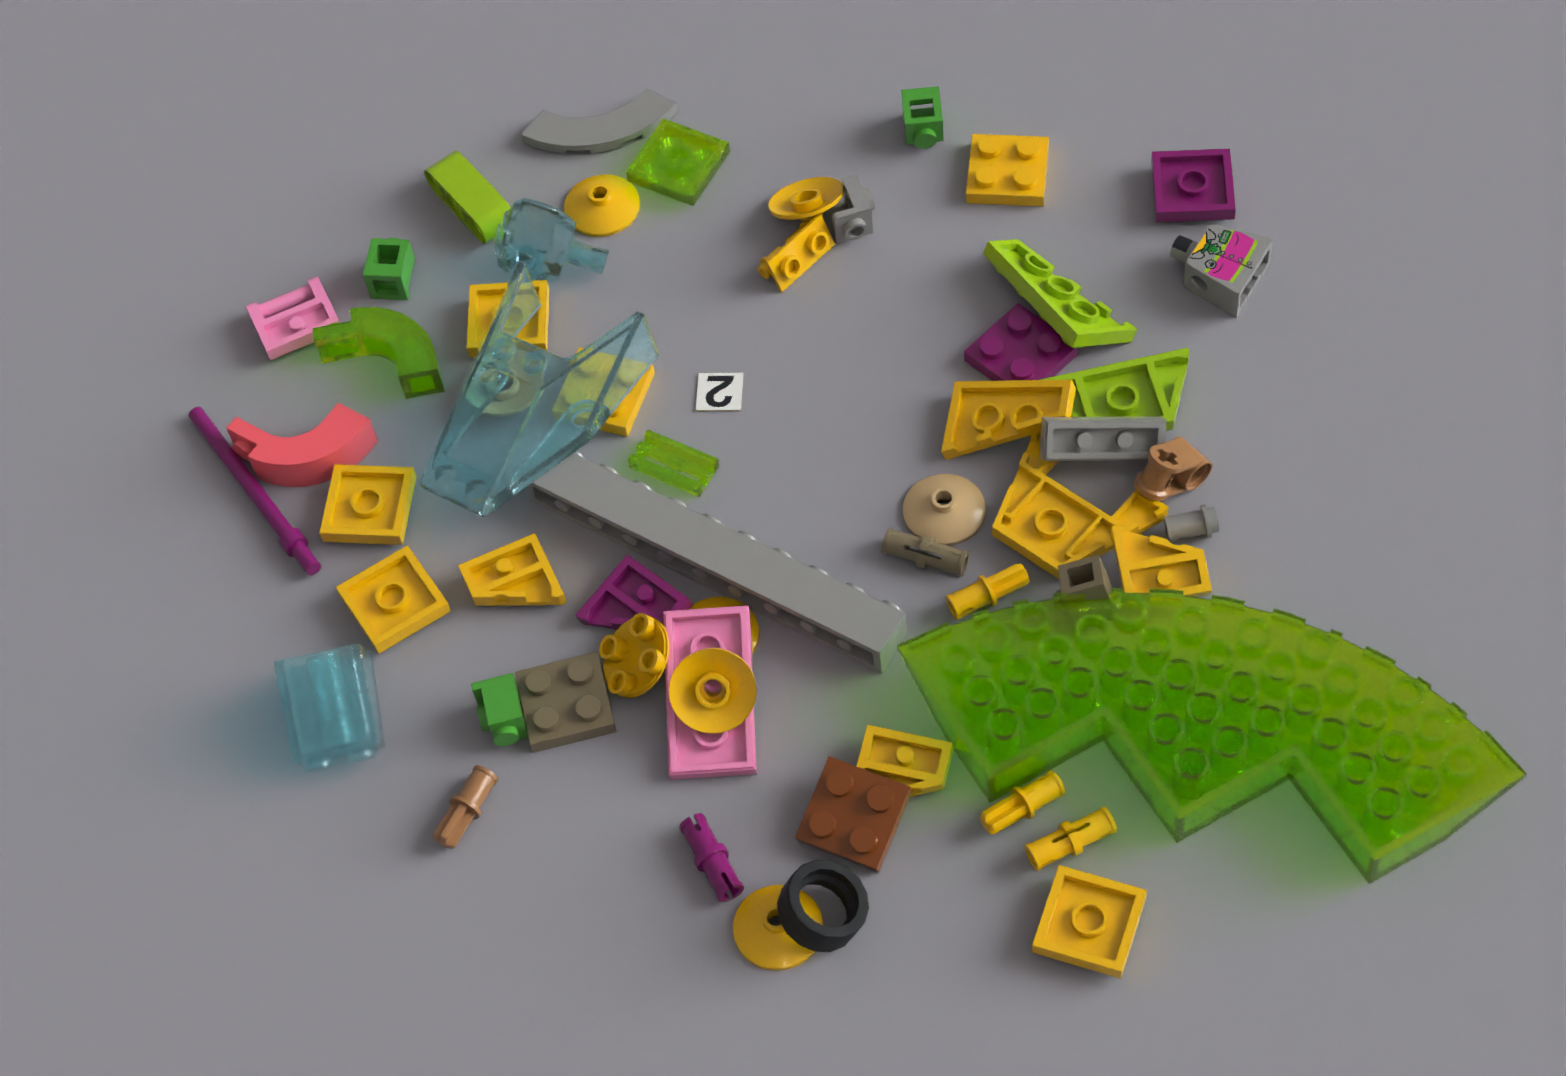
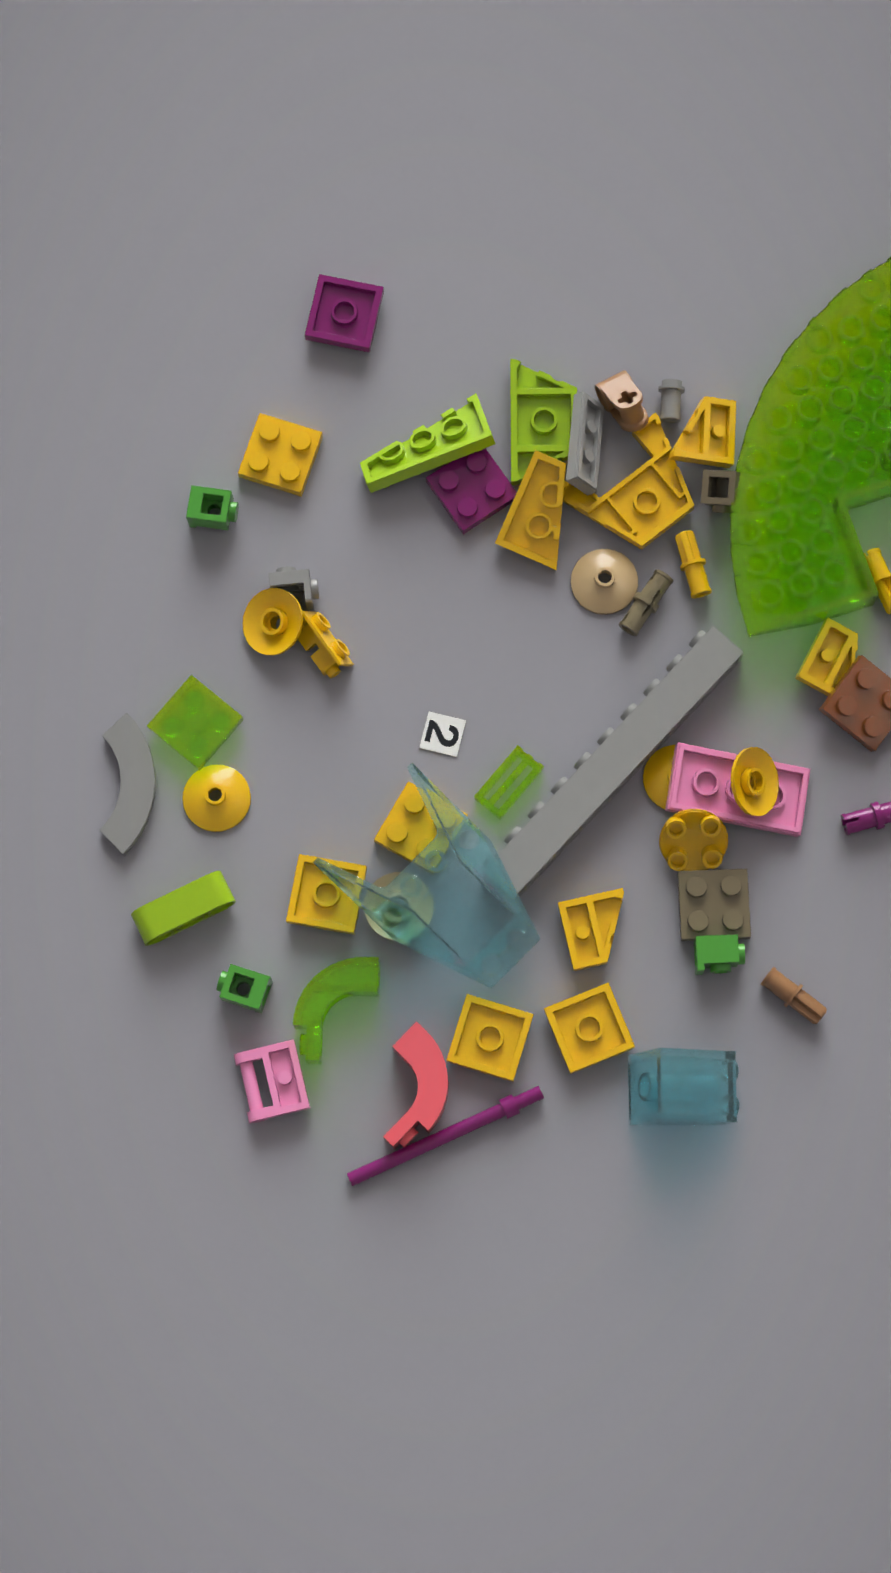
camera: 80 degrees left, 20 degrees up
(544, 240) = (263, 845): clear light blue piece -> none
(630, 591) = (636, 834): magenta wing -> none
(1223, 265) = (435, 311): light grey torso -> none

